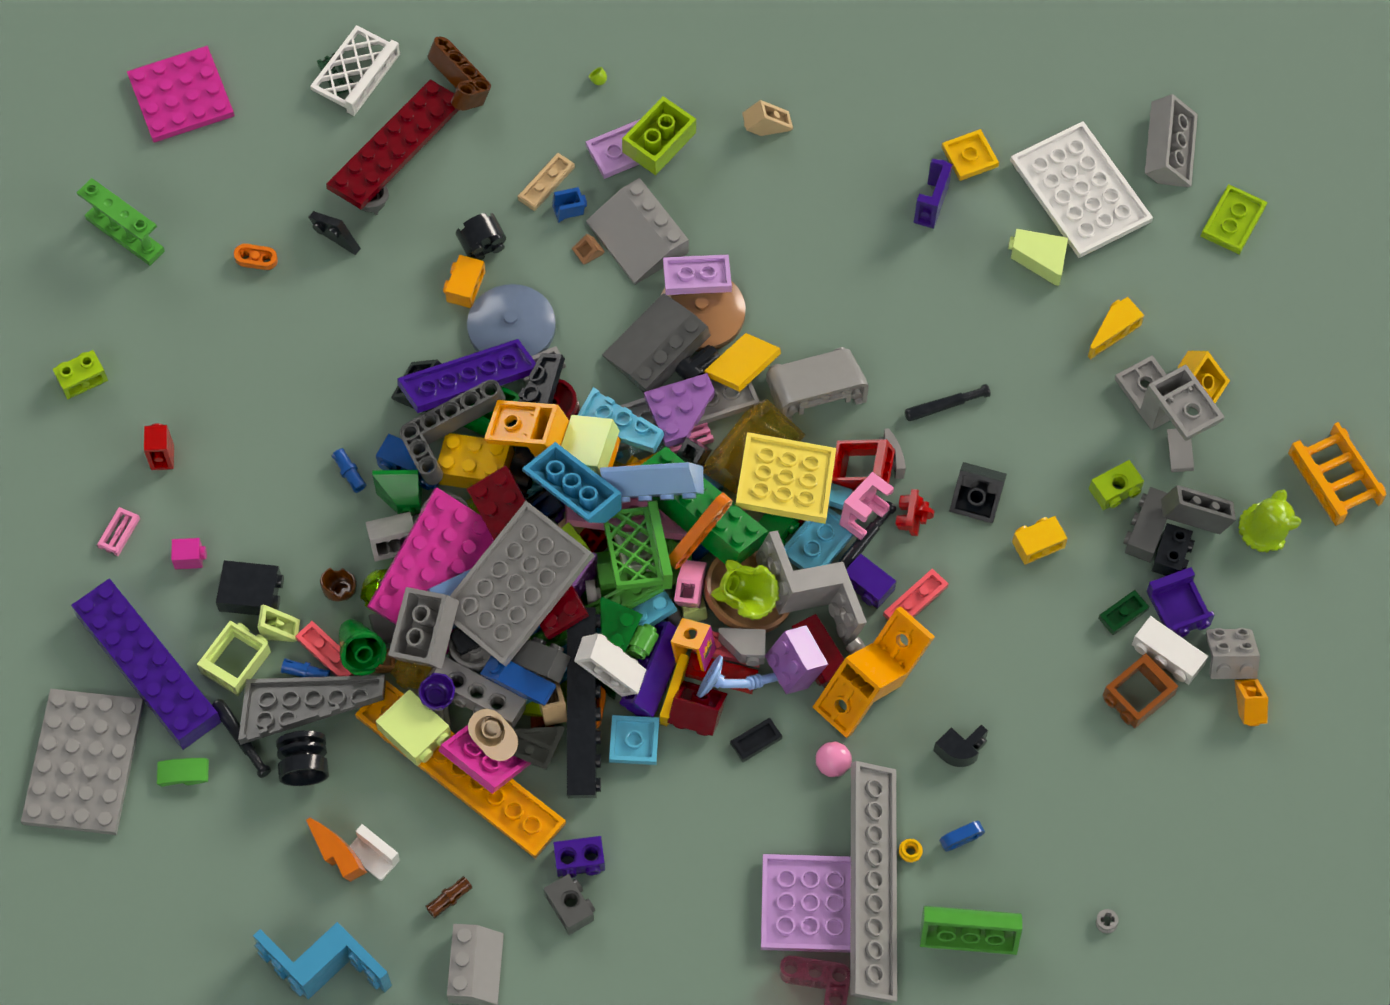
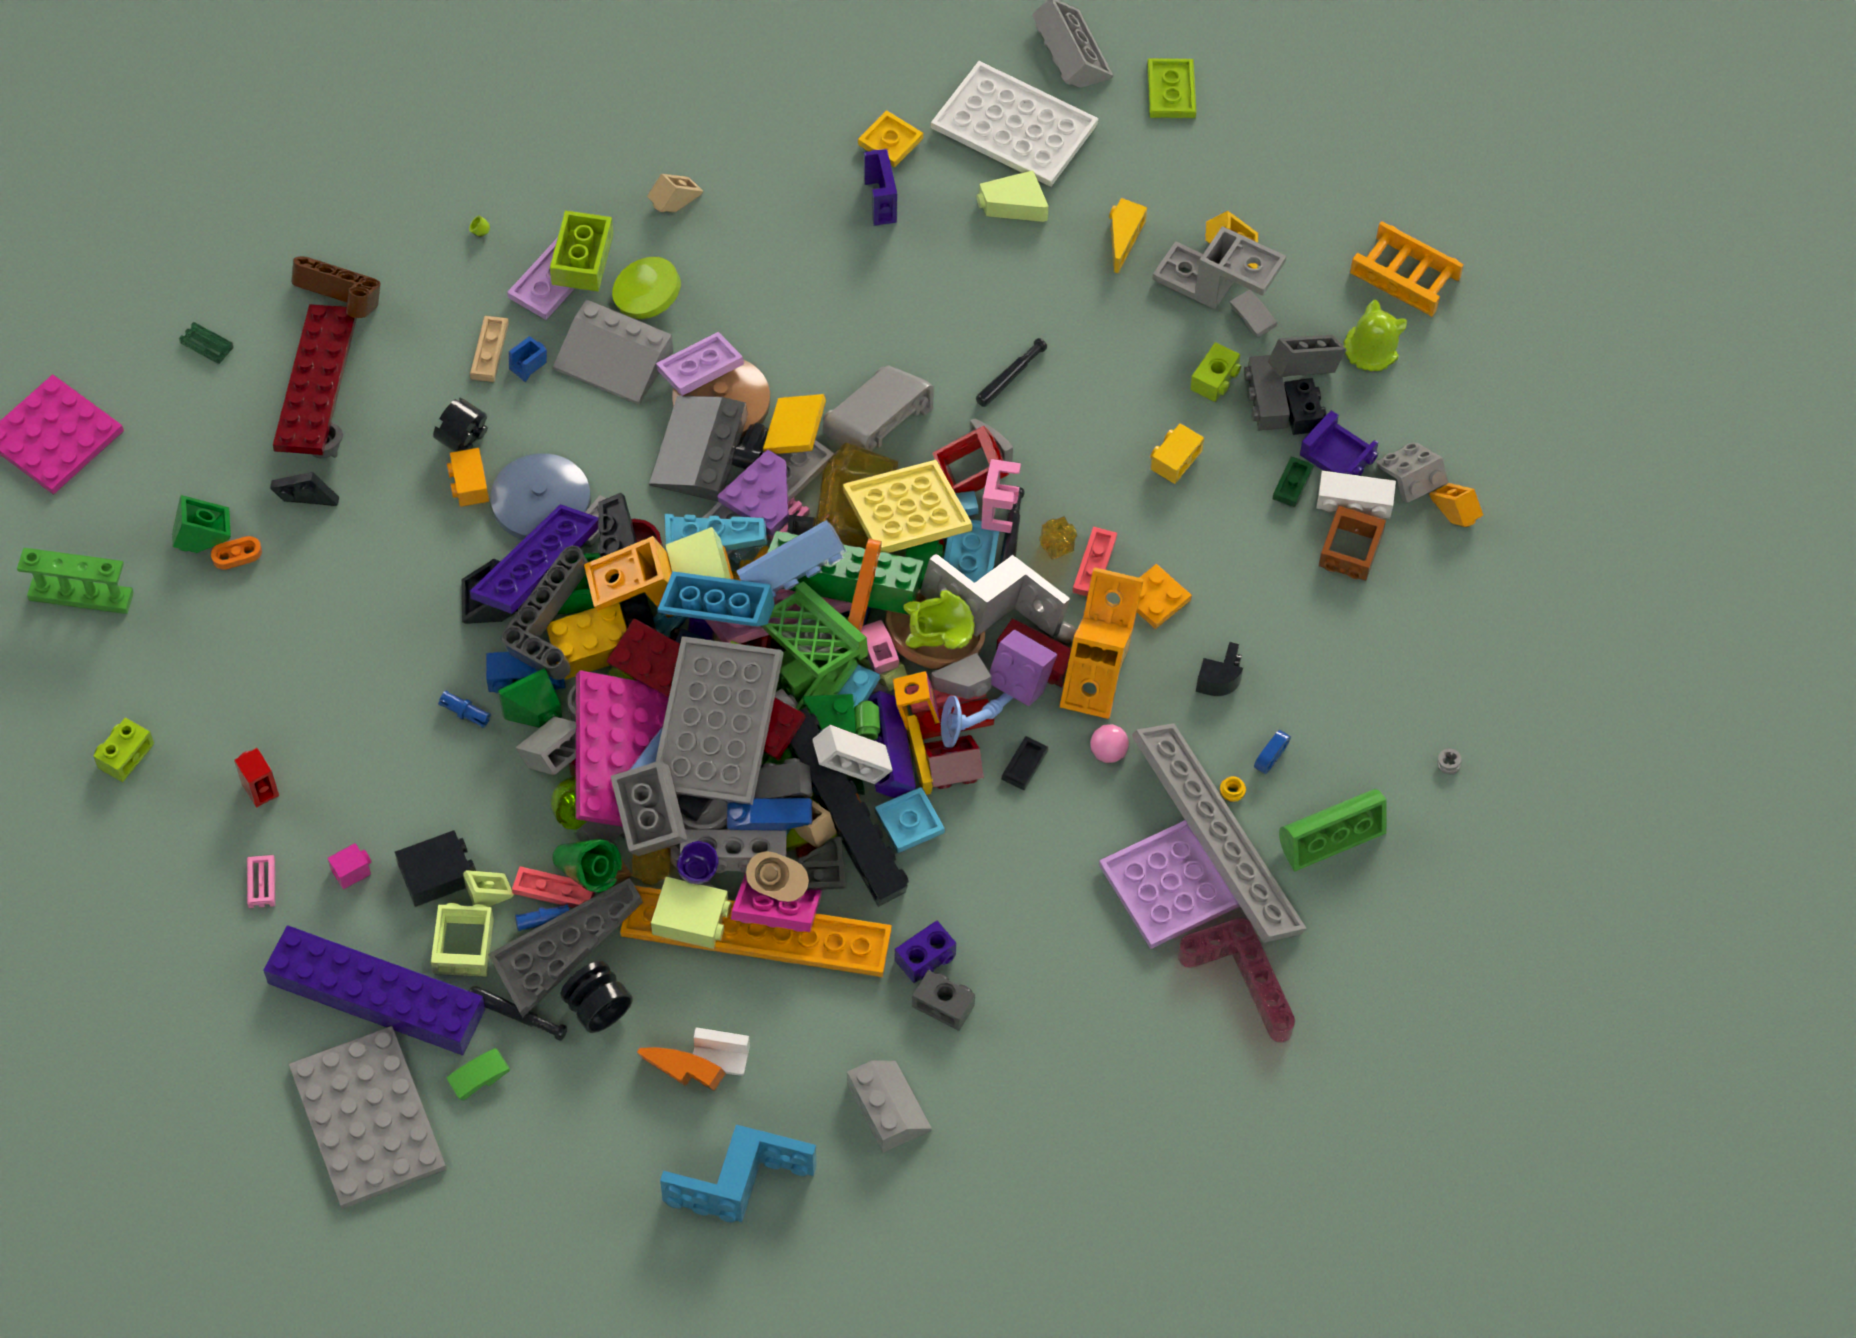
camera: 30 degrees left, 5 degrees down
(241, 221) = (200, 525): none -> green slope
(338, 584) = (525, 820): reddish brown hair -> none
(368, 81) = (246, 333): white fence -> none
(448, 897) = (821, 1054): reddish brown pin -> none
(588, 249) = (571, 393): medium nougat slope -> none
(696, 190) = (646, 287): none -> lime piece
(870, 581) = (1047, 562): dark purple brick -> none
(897, 562) = (1058, 537): none -> clear yellow brick
(917, 512) = (1038, 477): red hips -> none
(951, 654) = (1160, 596): none -> light orange plate
(977, 492) = (1092, 438): black slope -> none

